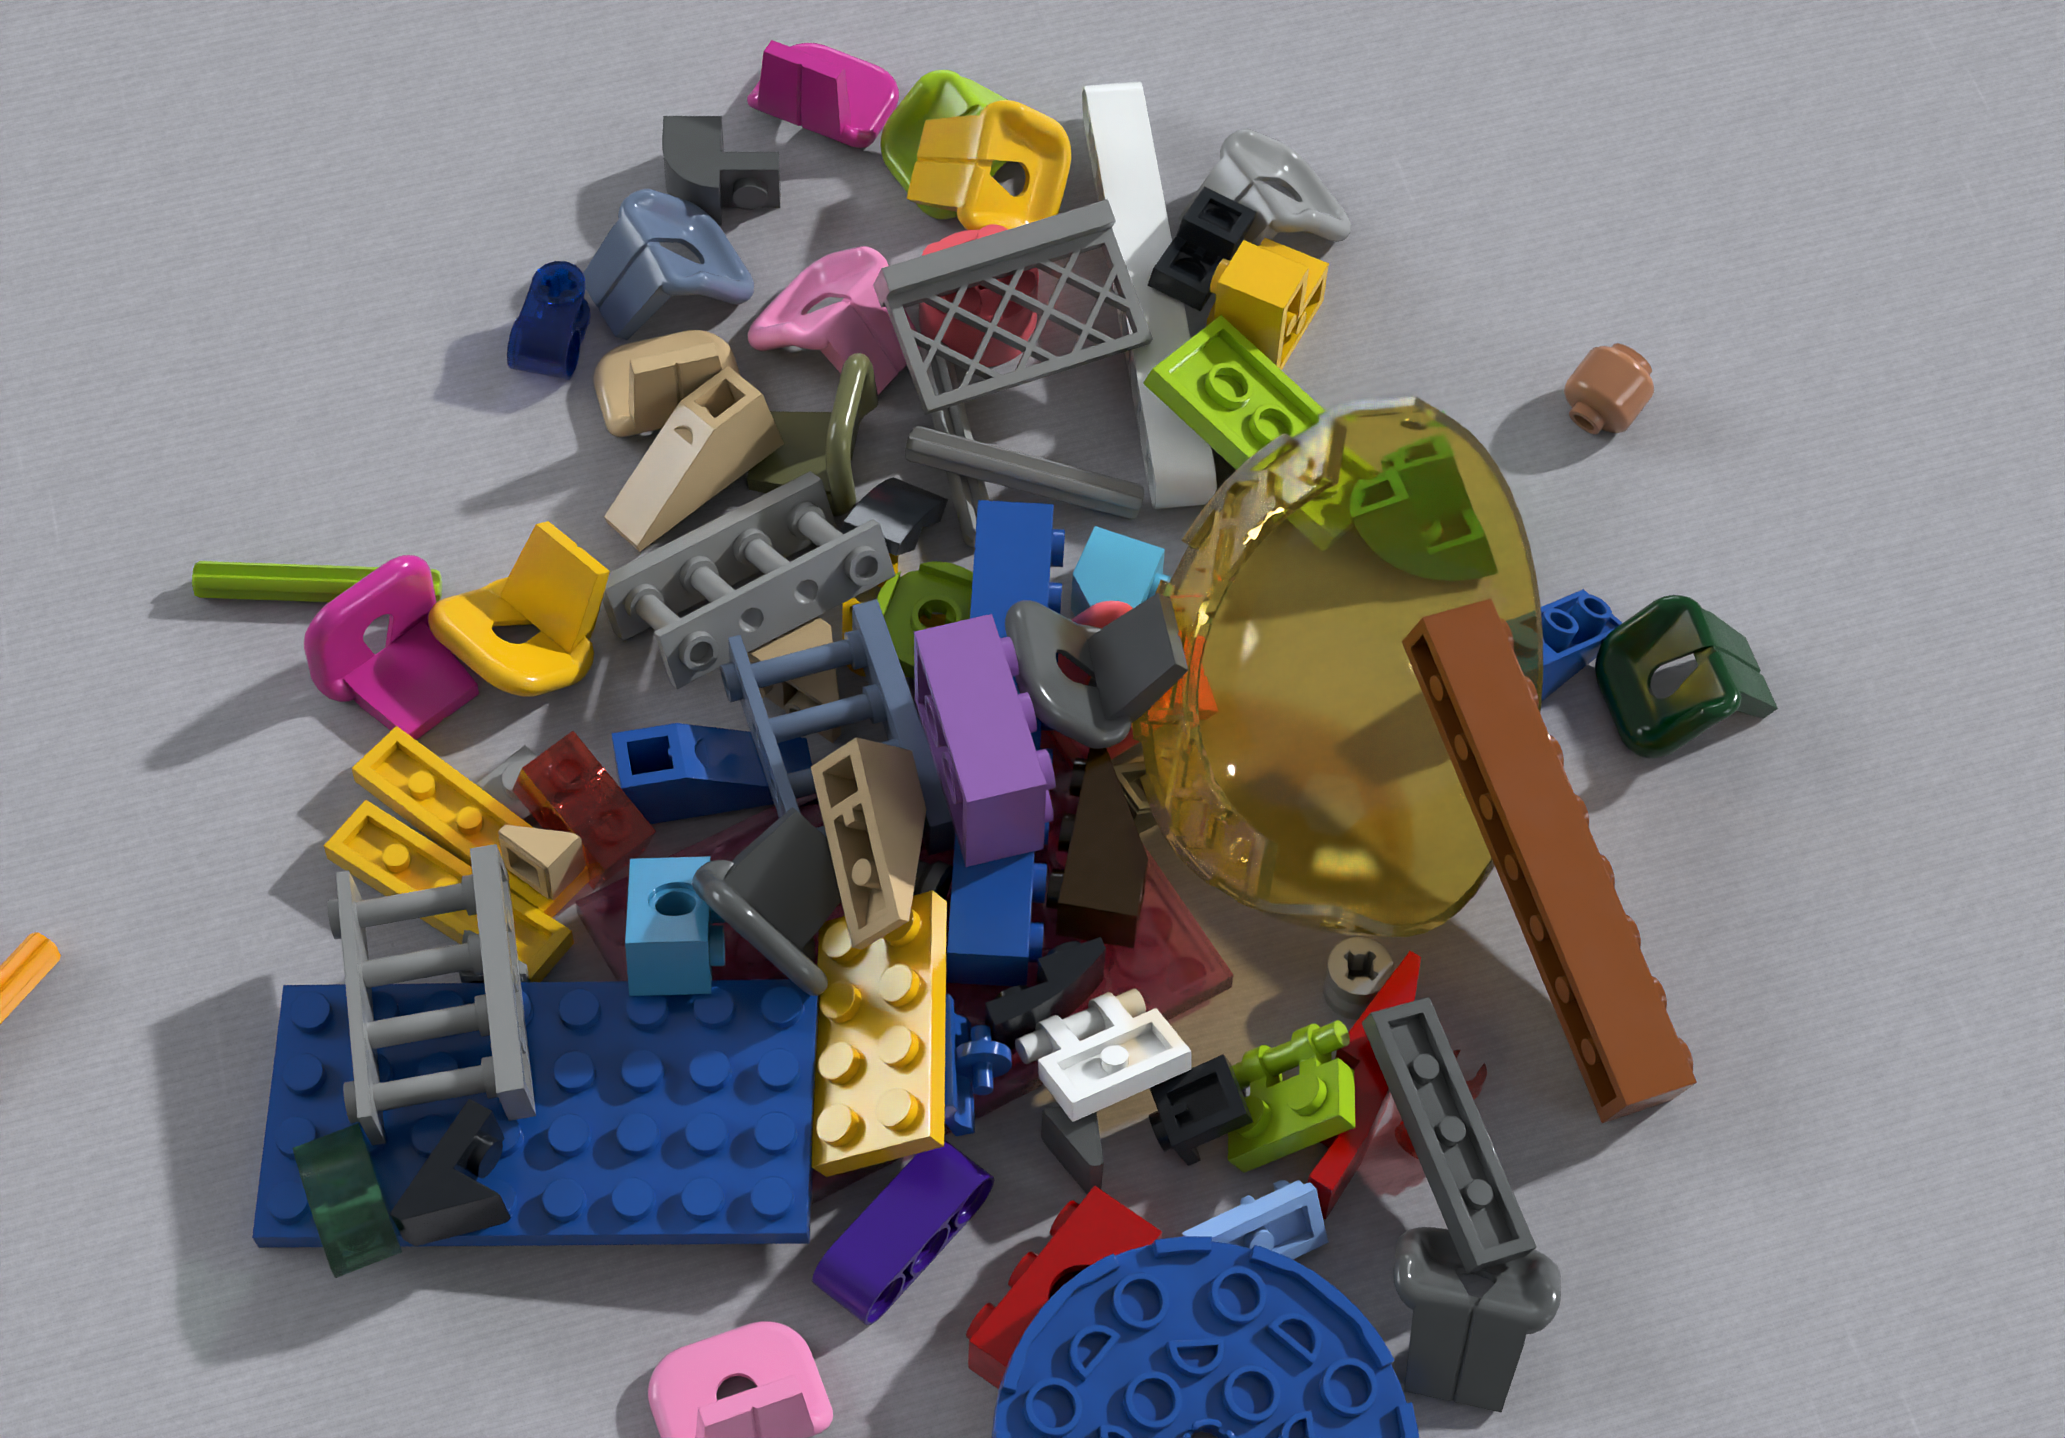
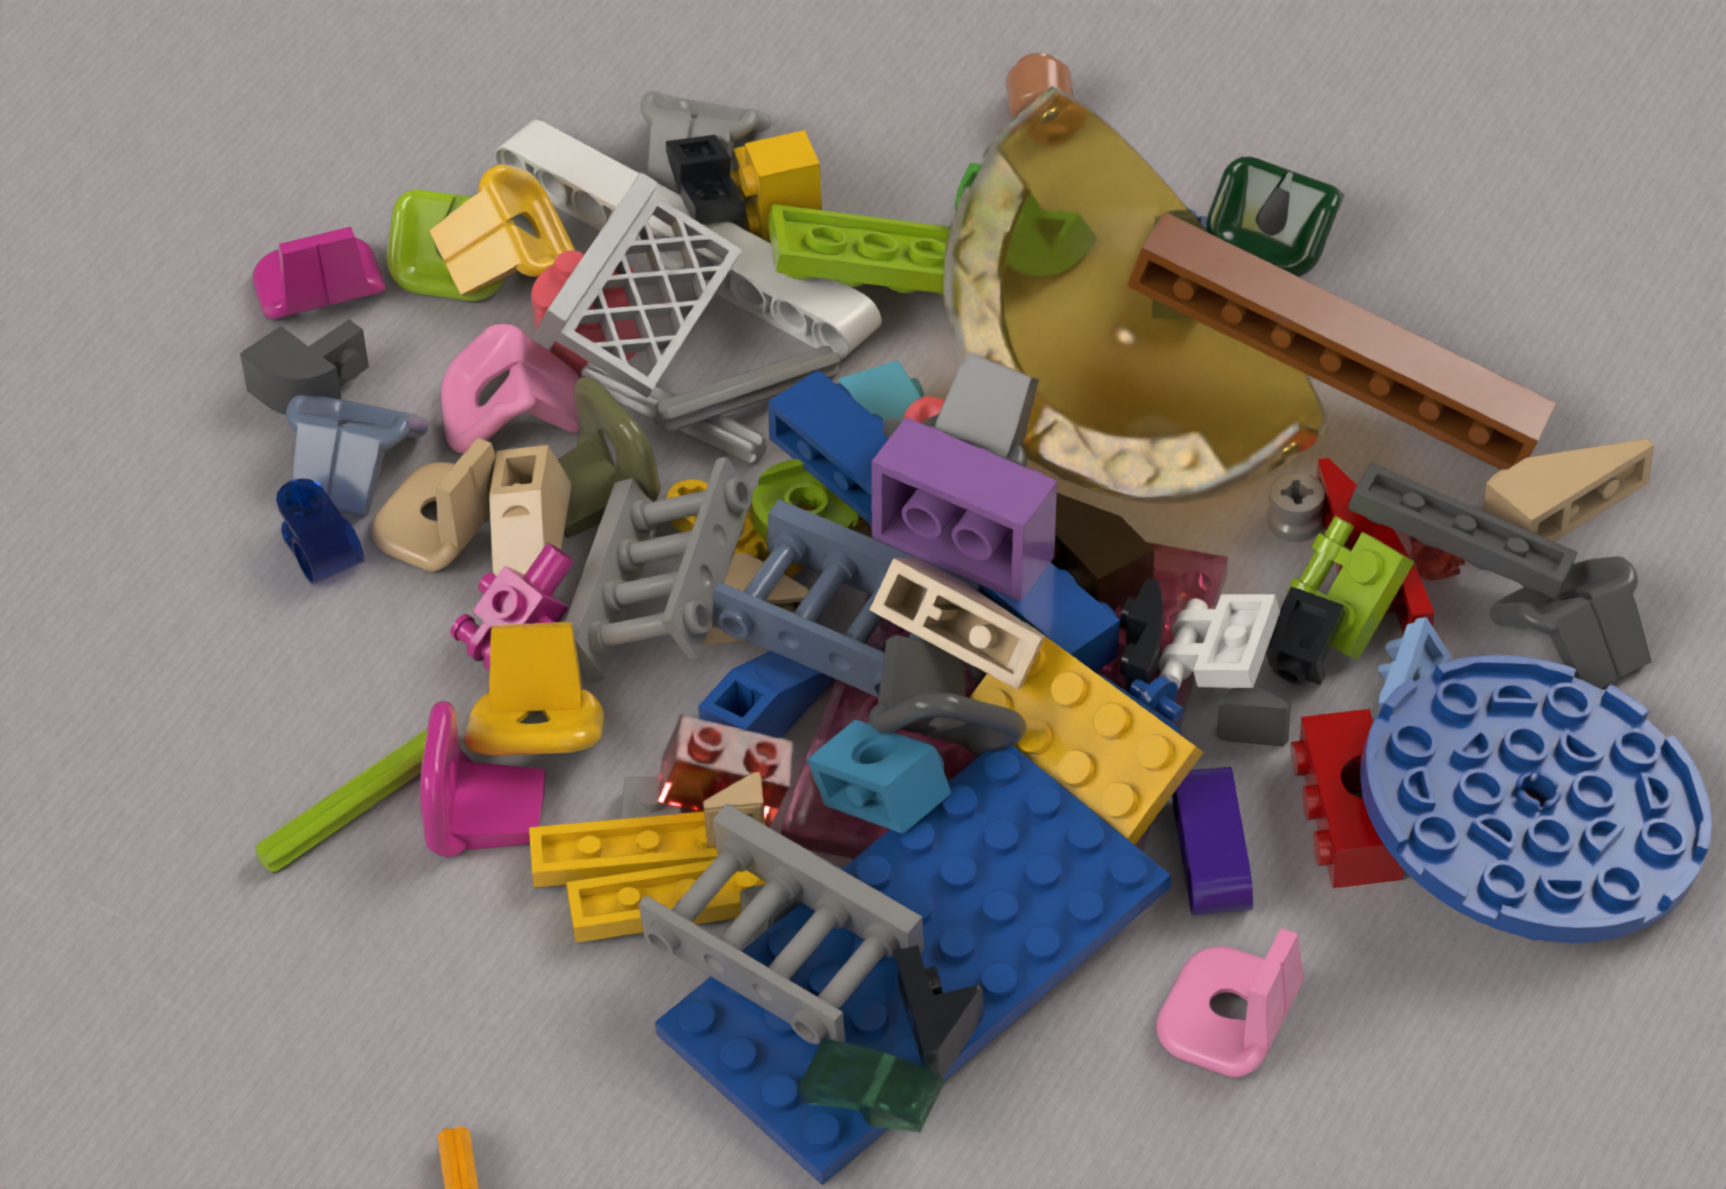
camera: 40 degrees left, 10 degrees down
(612, 518) = (514, 600): none -> dark pink piece
(900, 511) = (692, 468): black slope -> none
(1605, 1170) = (1567, 488): none -> tan slope

